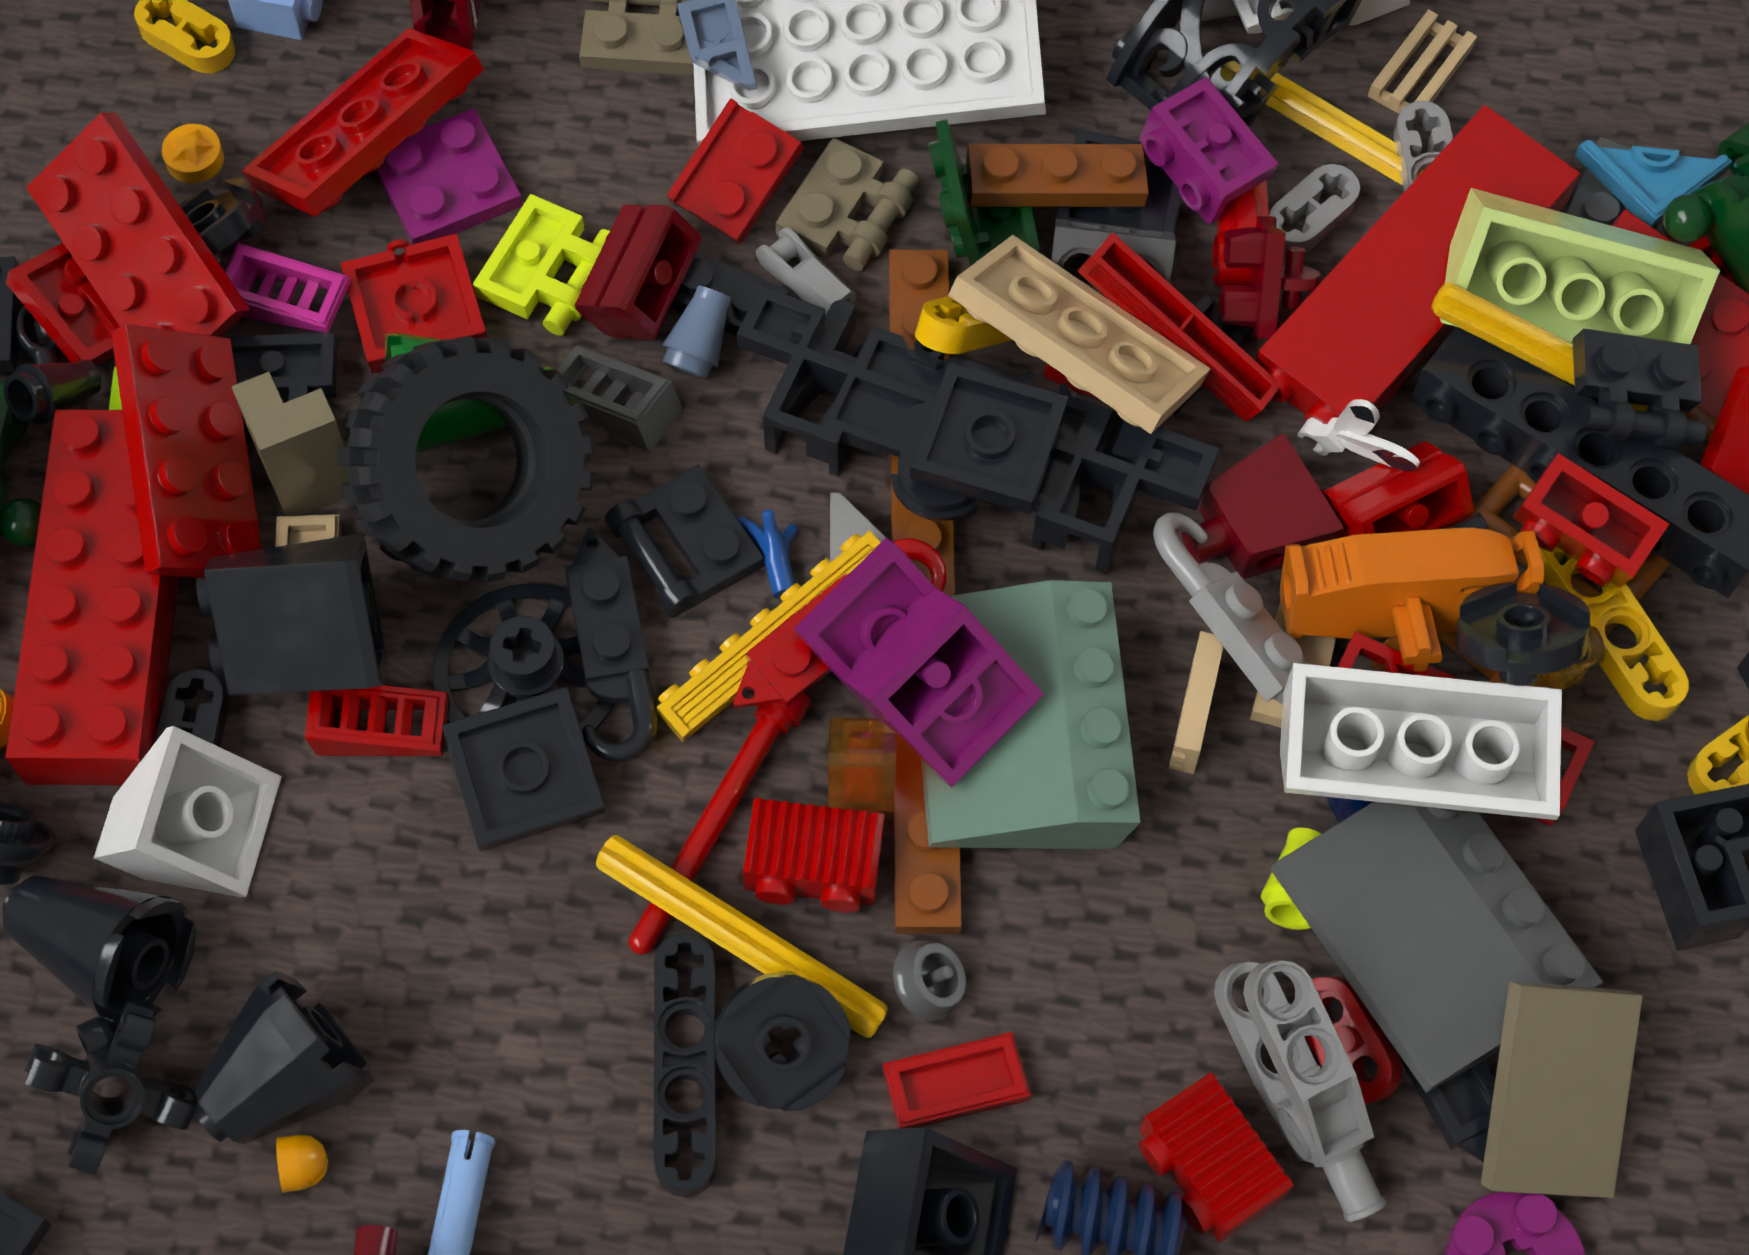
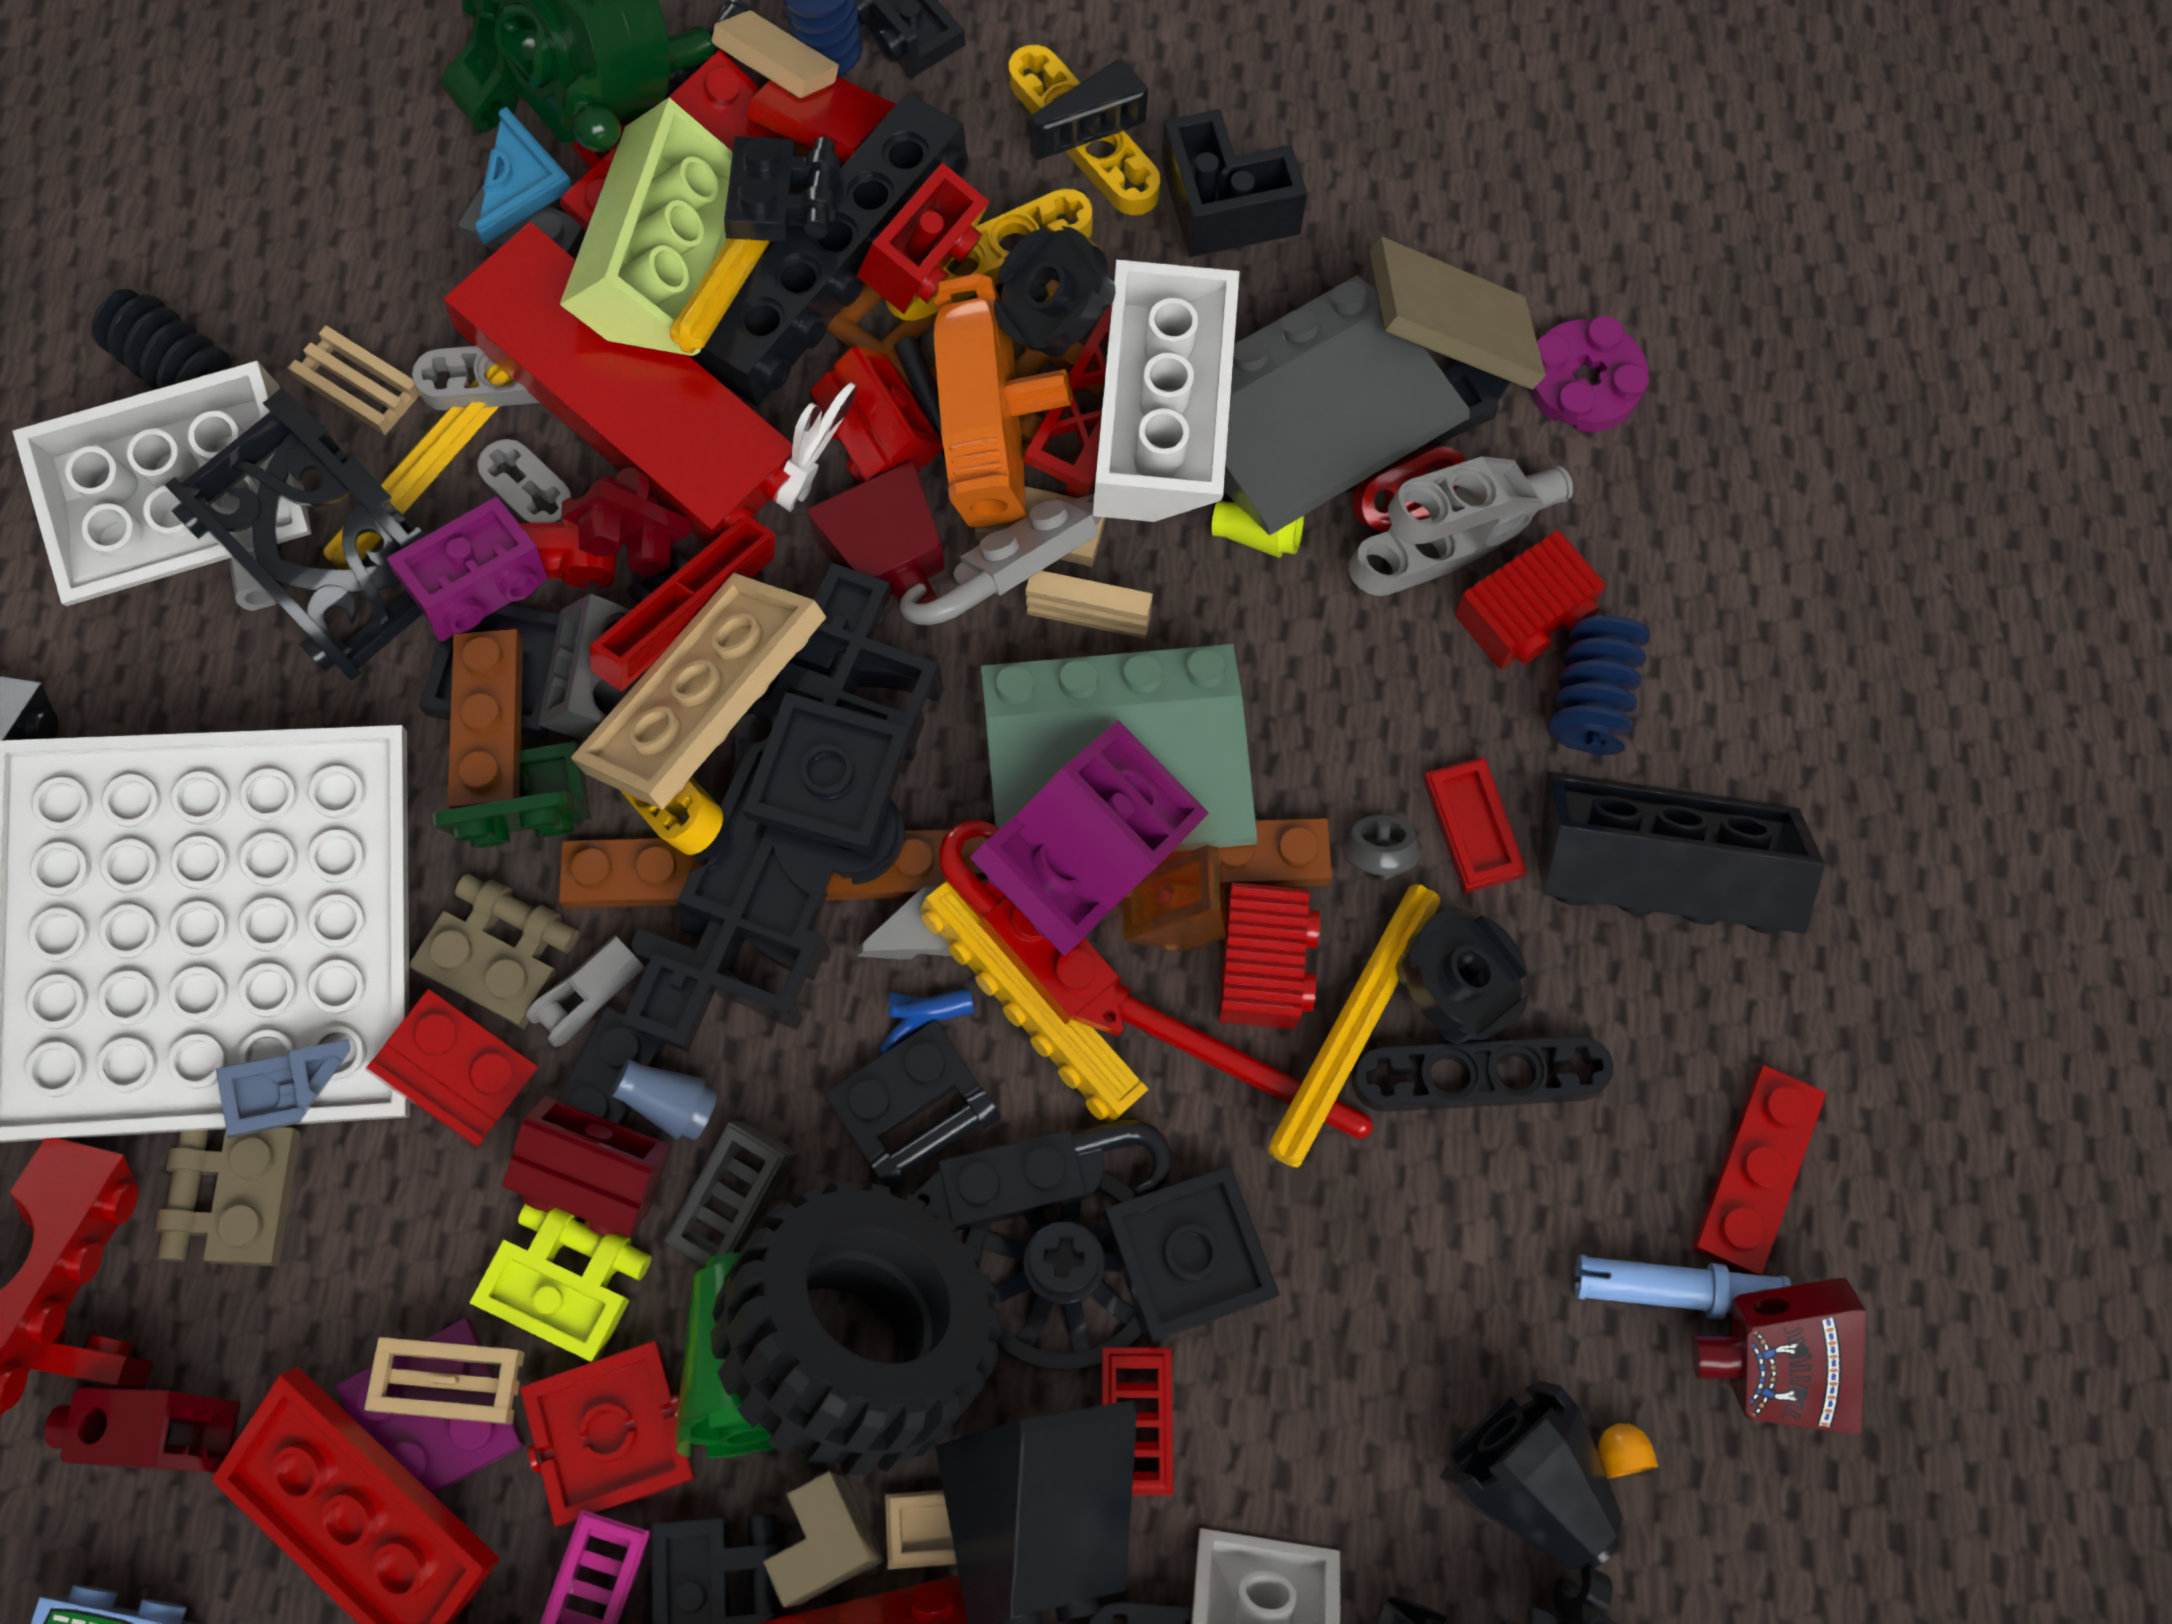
camera: 90 degrees left, 5 degrees up
(458, 216) = (504, 1387): none -> tan tile

